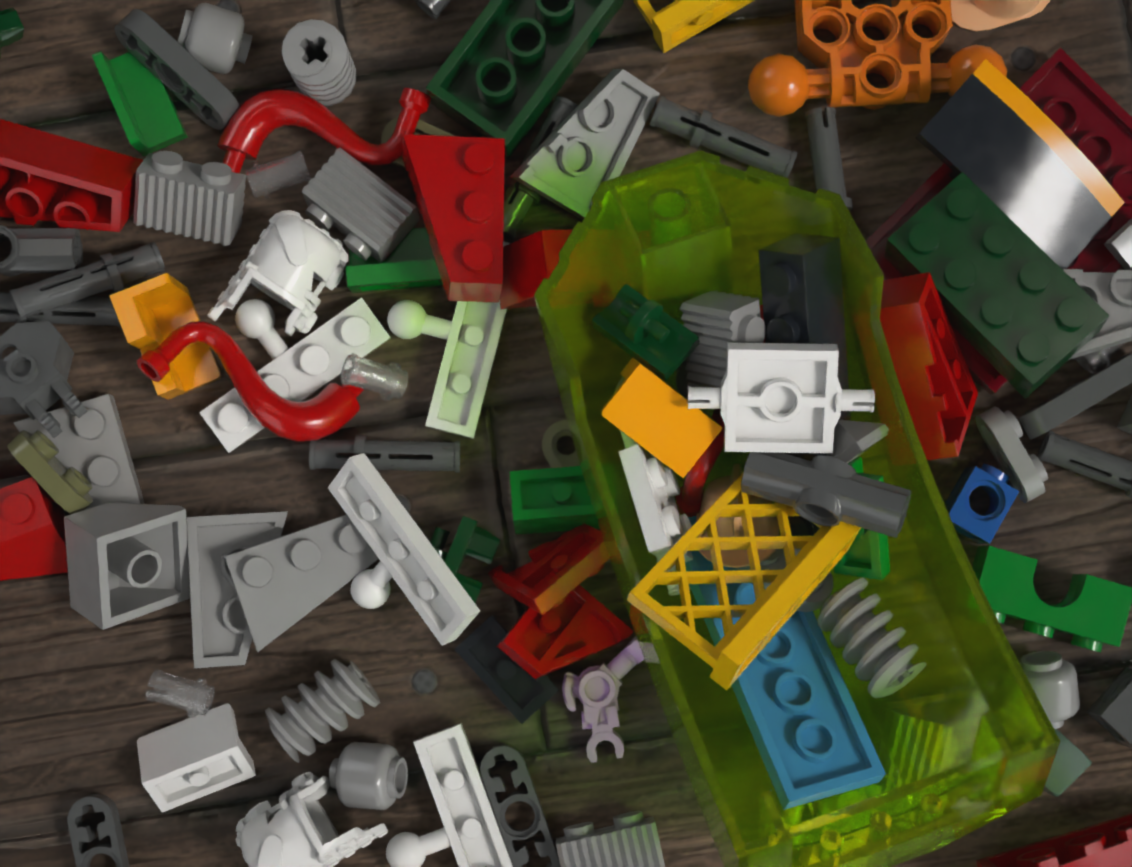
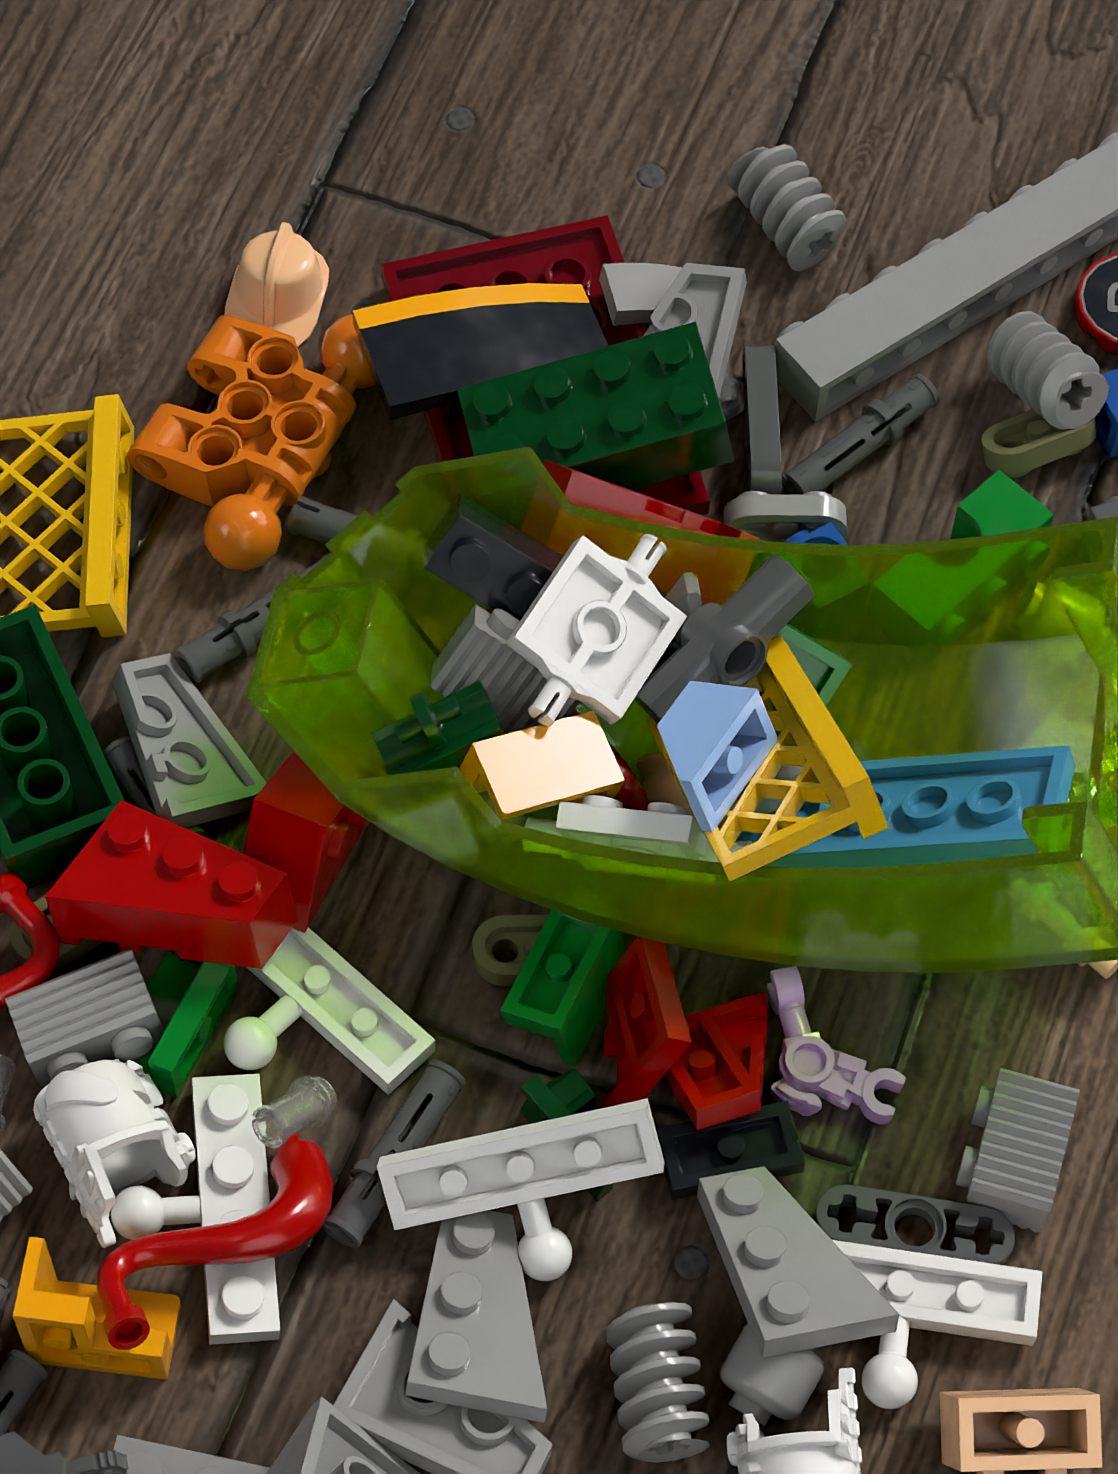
camera: 60 degrees left, 25 degrees down
(431, 754) = (786, 1269): none -> light grey wing
(726, 531) = (716, 745): none -> light blue slope
(867, 640) = (910, 709): light grey piece -> none

